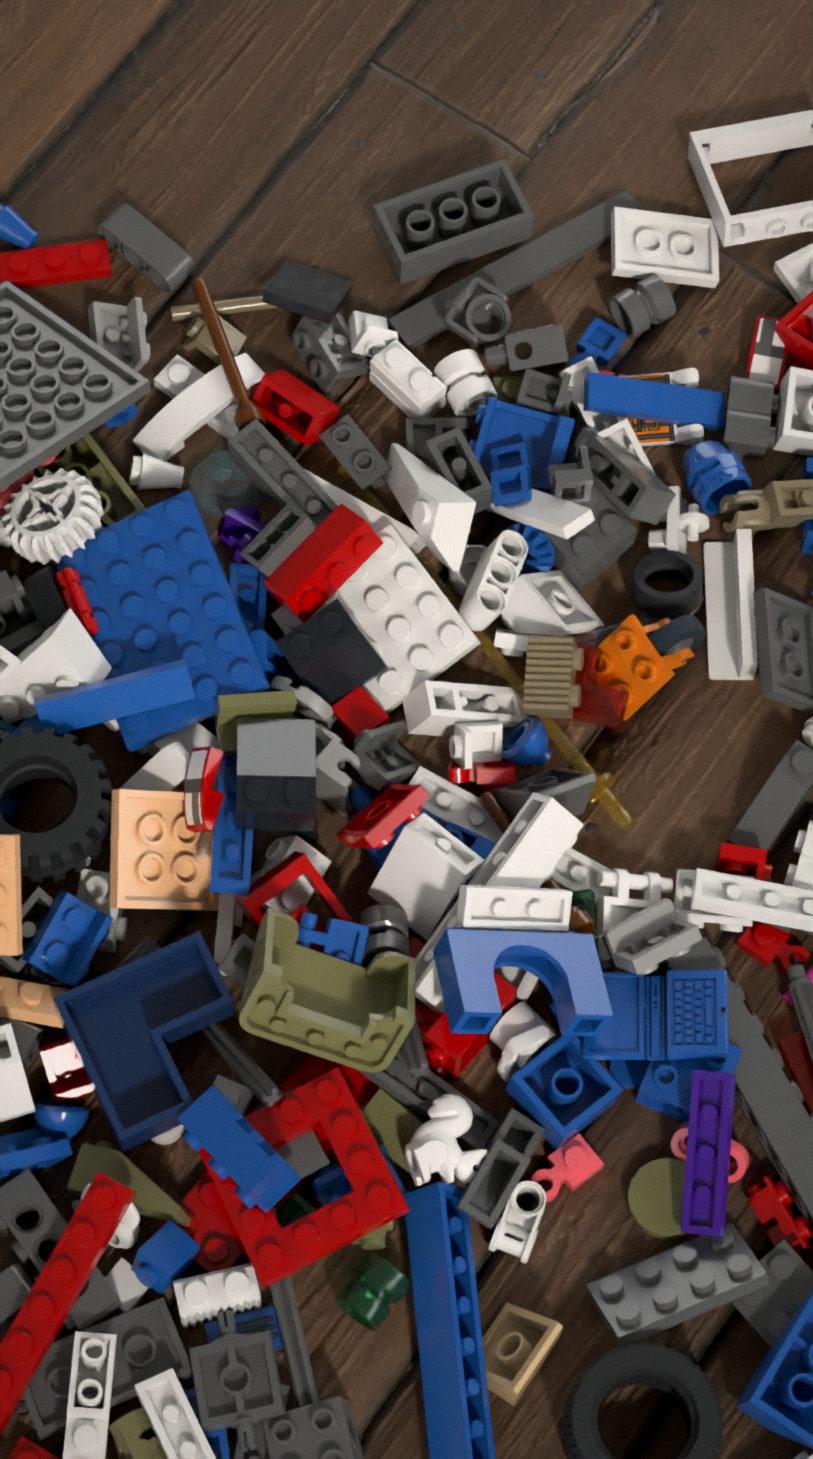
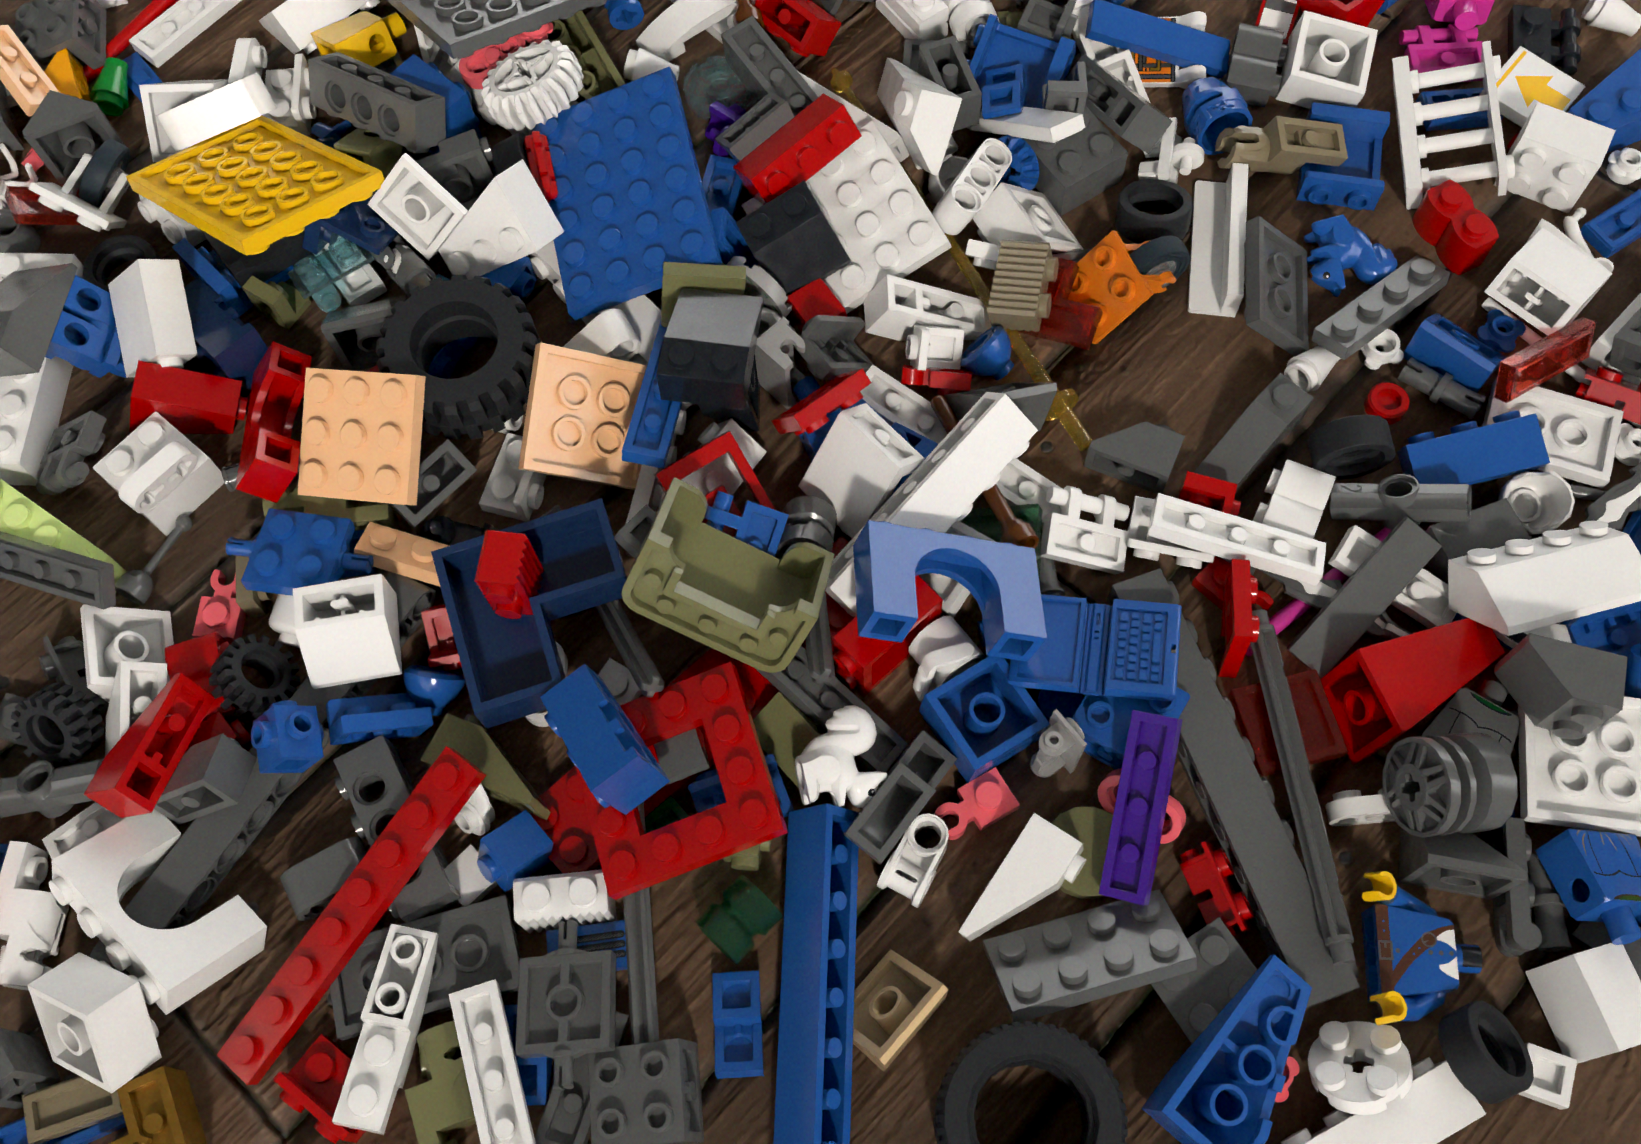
camera: 15 degrees right, 0 degrees up
(68, 939) = (471, 496): blue bracket -> none
(115, 697) = (558, 254): blue tile -> none
(128, 1011) = (508, 573): none -> red brick
(200, 800) = (631, 365): slope -> none
(356, 453) = (851, 66): dark grey hinge -> none
(384, 1382) = (738, 1024): none -> blue slope
(513, 908) = (948, 509): white plate -> none
(619, 1222) = (1029, 873): none -> white slope
(633, 1108) = (1058, 746): none -> light grey hinge
(650, 938) = (1098, 562): light grey bracket -> none
(675, 829) = (1137, 455): none -> dark grey slope
(777, 979) = (1237, 621): none -> red wing

